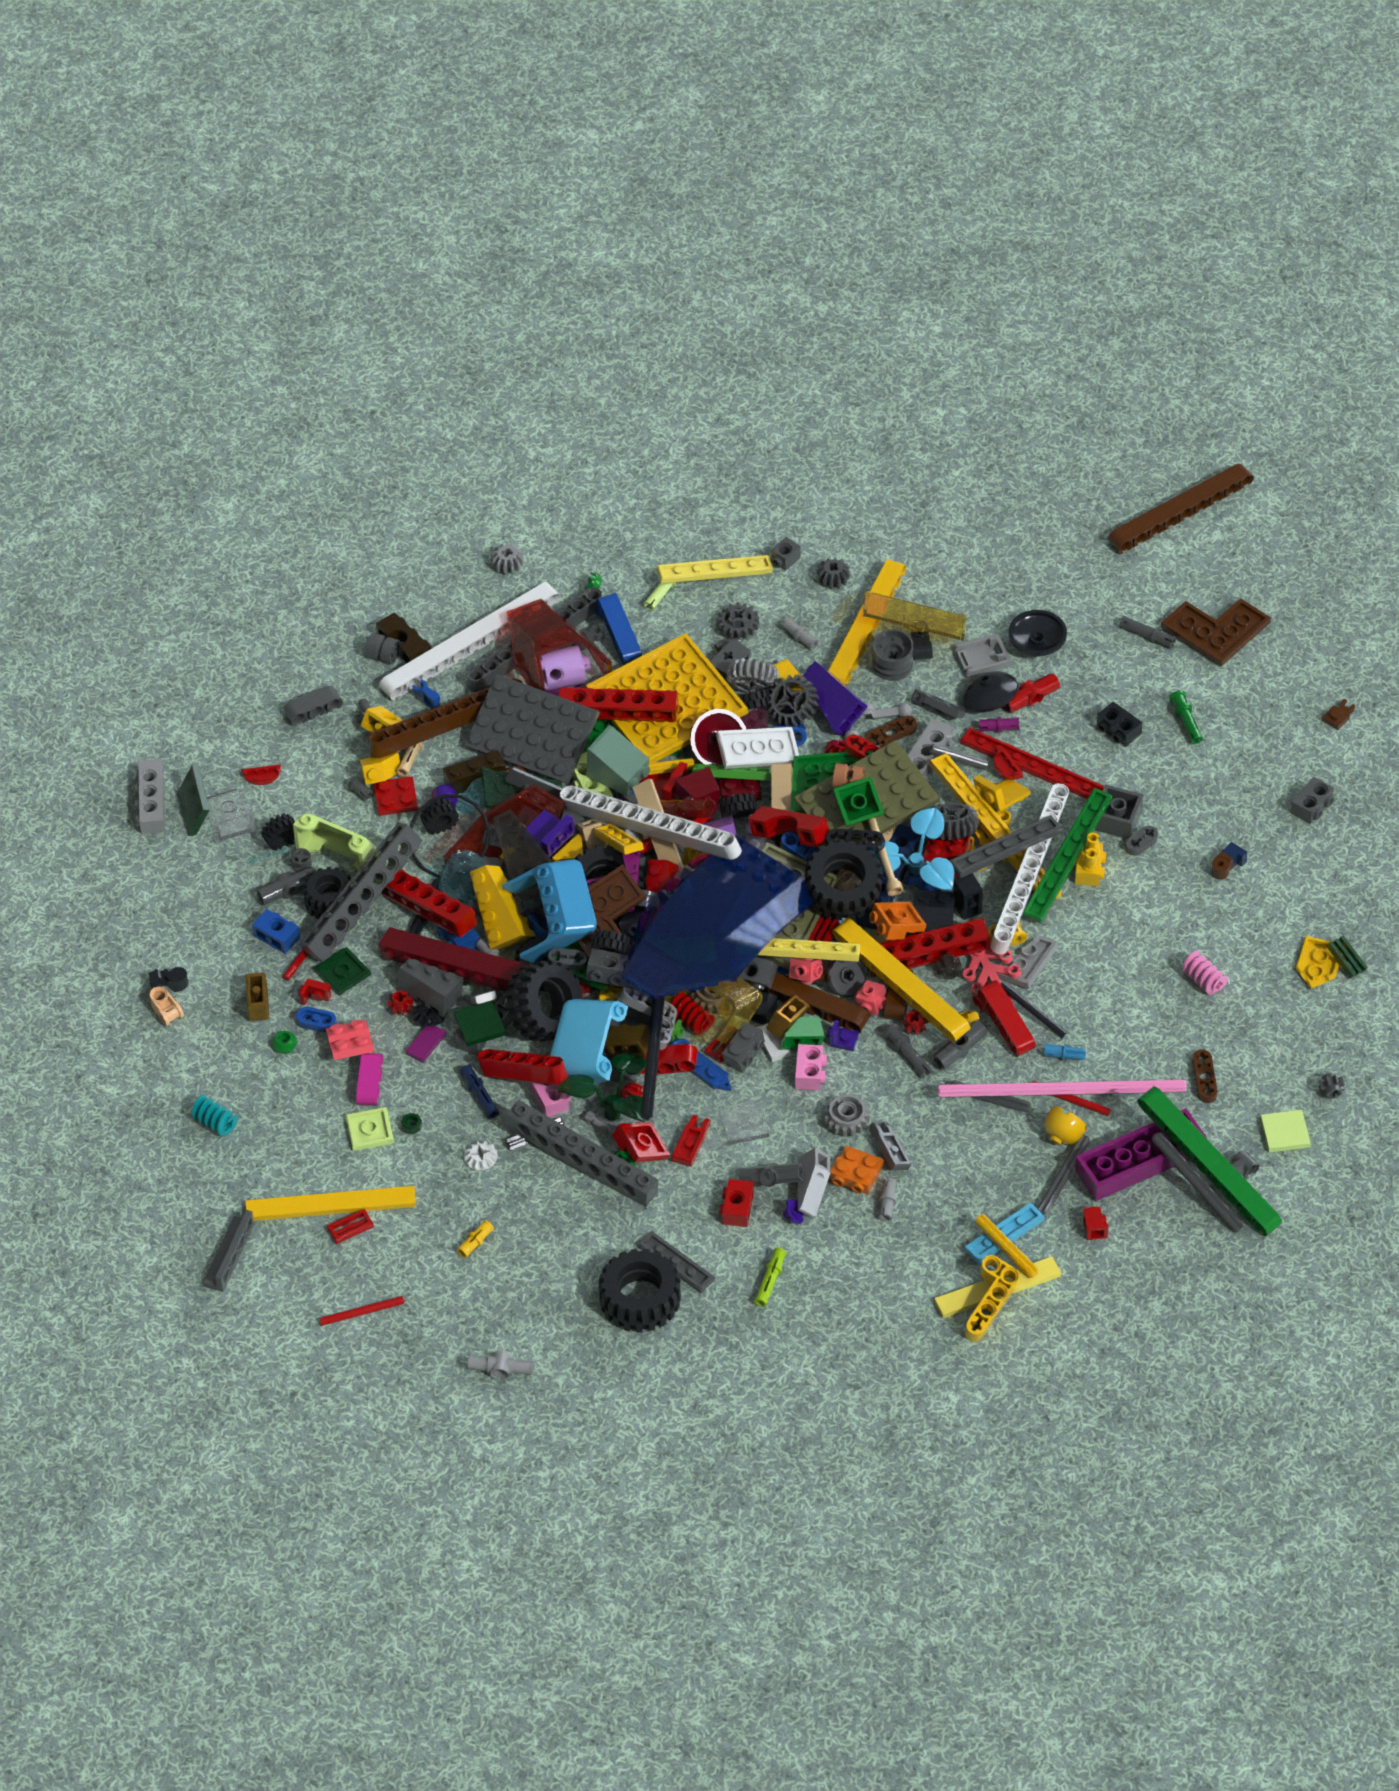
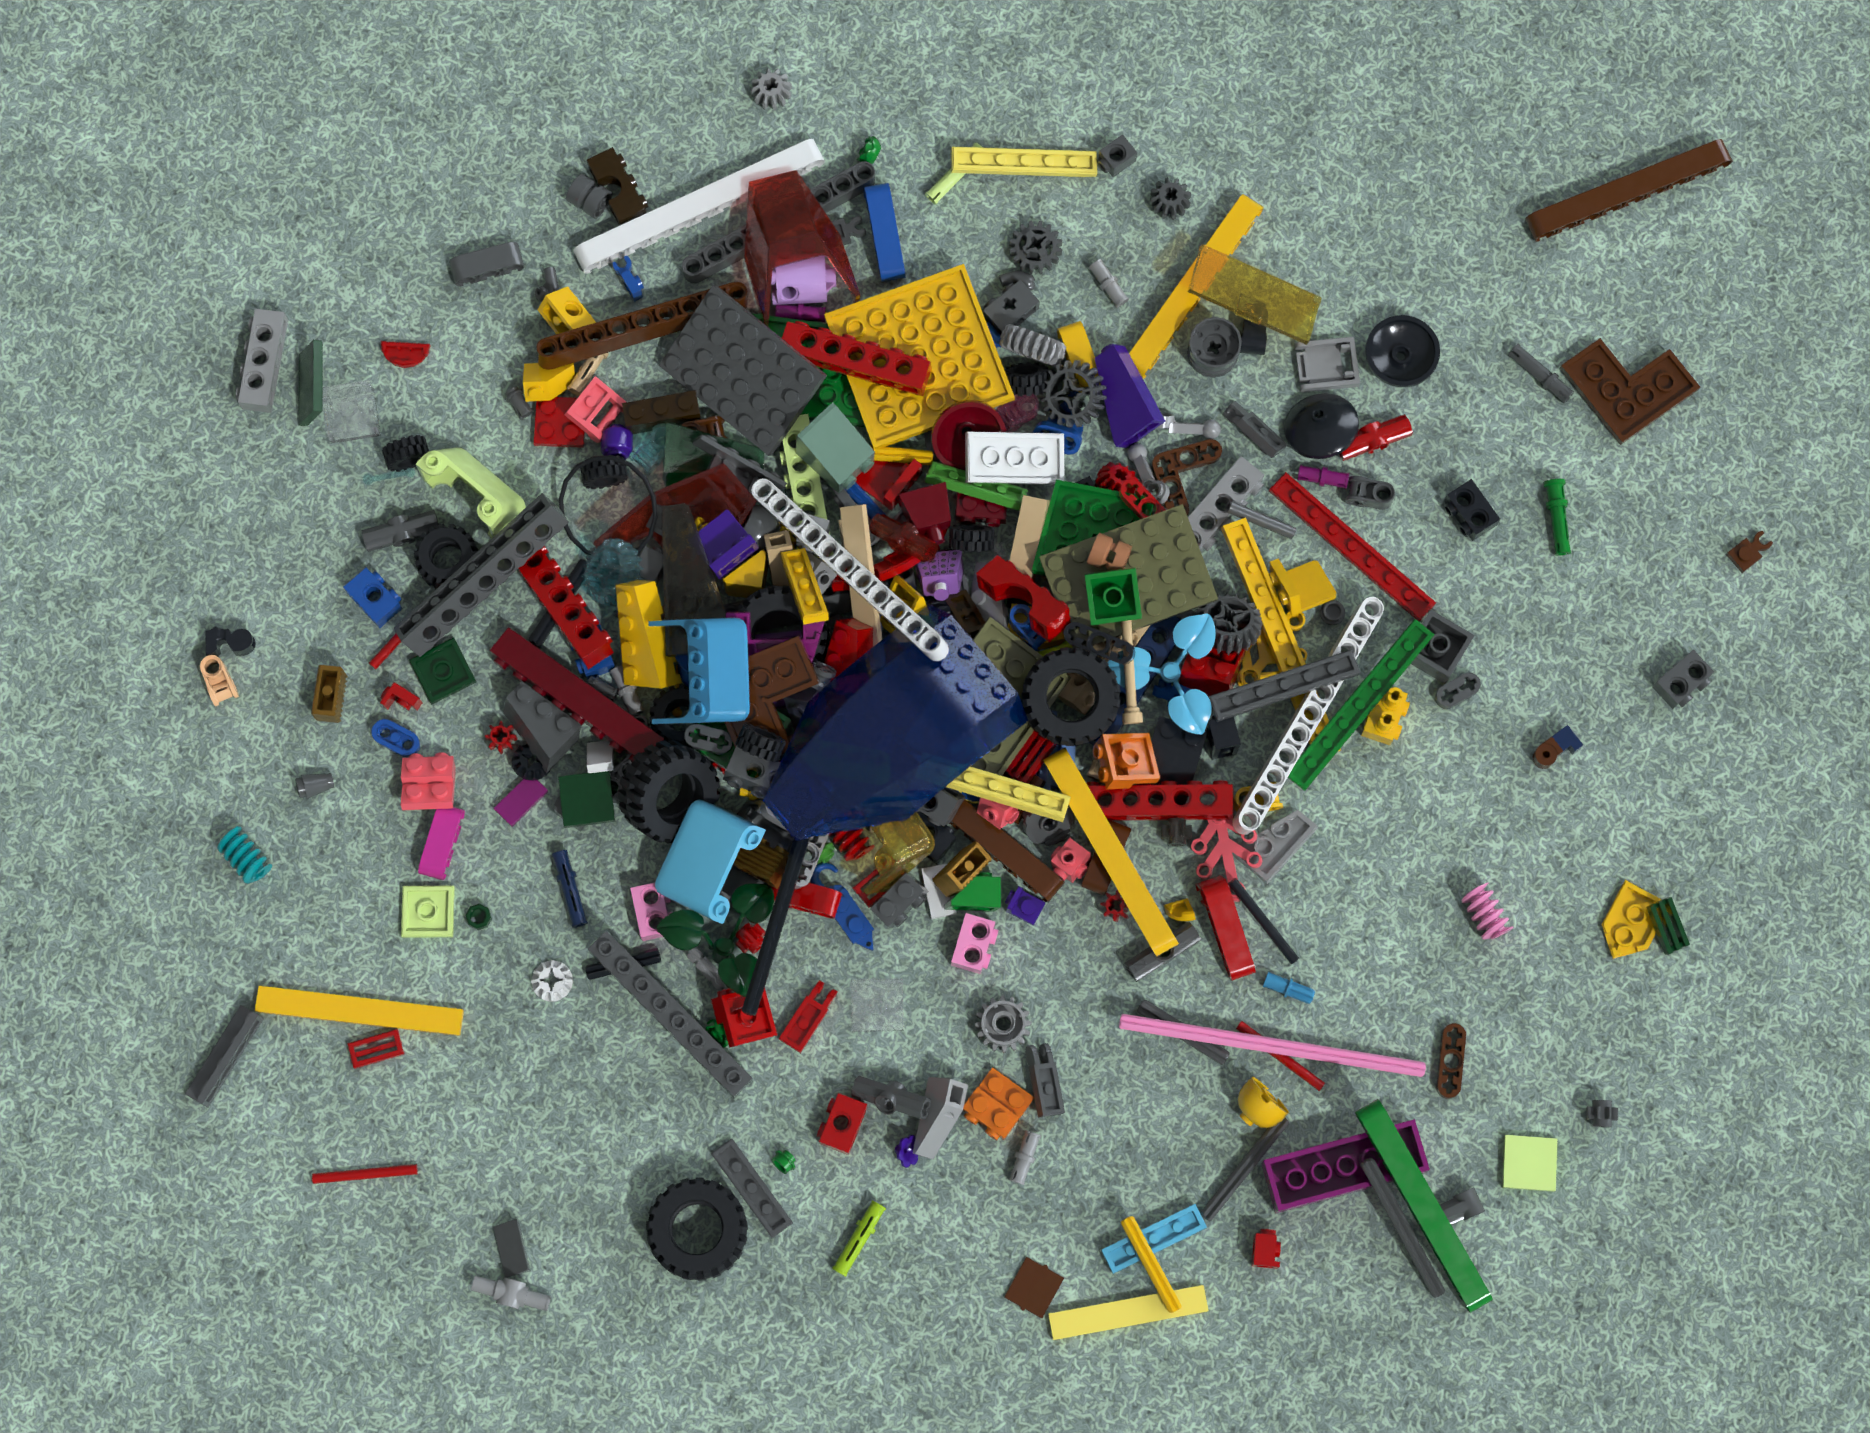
camera: 10 degrees right, 25 degrees up
(256, 1061) = (313, 784): none -> dark grey cone
(284, 1047) = (359, 761): green plate -> none
(298, 856) = (422, 492): dark grey wheel -> none
(417, 776) = (590, 403): none -> coral plate
(475, 1239) = (505, 1116): yellow pin -> none
(493, 1335) = (511, 1248): none -> dark grey slope
(522, 1066) = (623, 876): red beam -> none
(696, 1235) = (784, 1161): none -> green plate
(902, 1044) = (1094, 932): dark grey pin -> none
(918, 1286) = (1034, 1287): none -> reddish brown piece
(989, 1302) = (1108, 1339): yellow beam -> none
(1005, 766) = (1316, 544): red tile -> none
(1030, 808) = (1332, 612): none -> dark grey plate
(1040, 727) = (1367, 493): none -> dark grey piece

